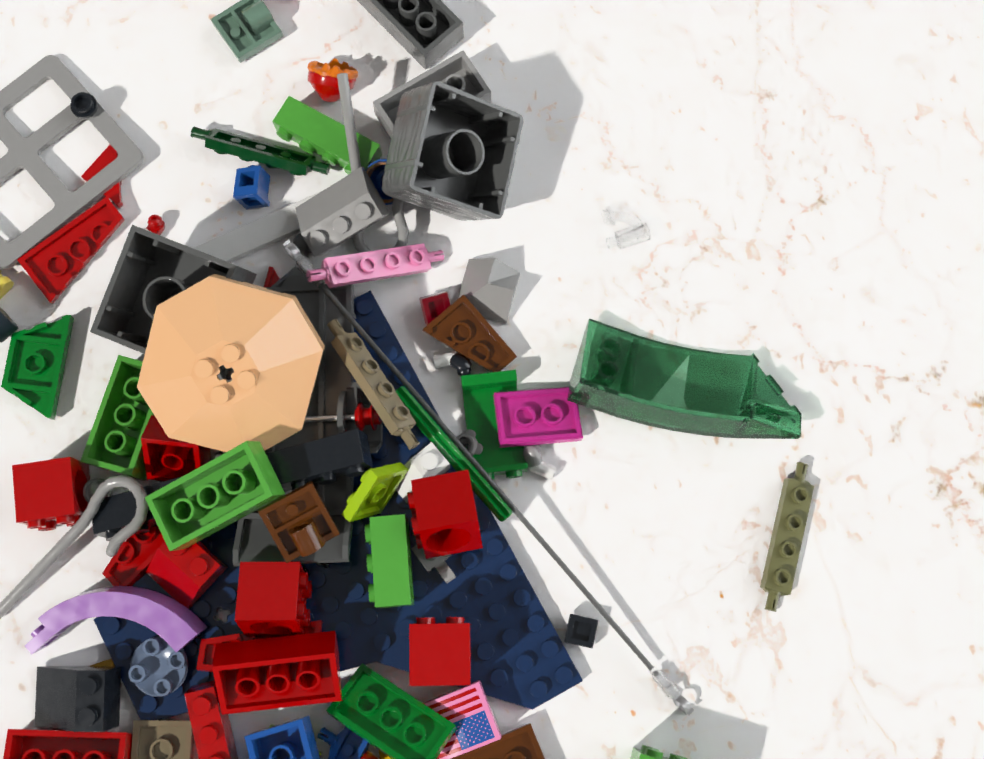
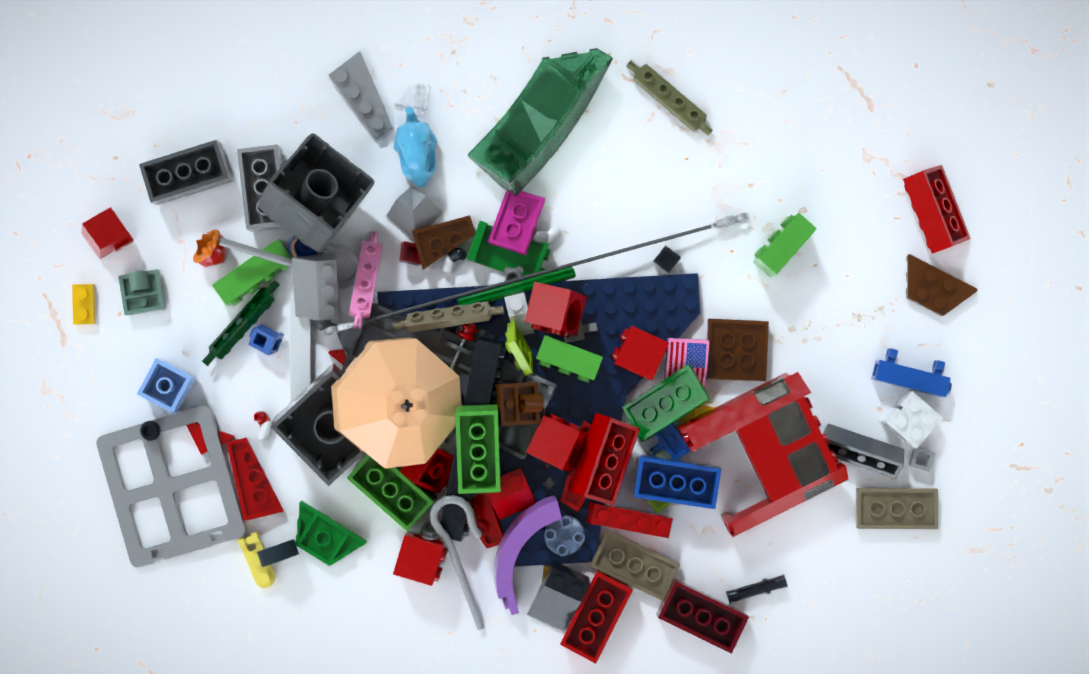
camera: 65 degrees left, 10 degrees up
(146, 99) = (166, 385): none -> light blue brick
(566, 256) = (416, 149): none -> medium azure piece
(601, 164) = (360, 91): none -> light grey wing

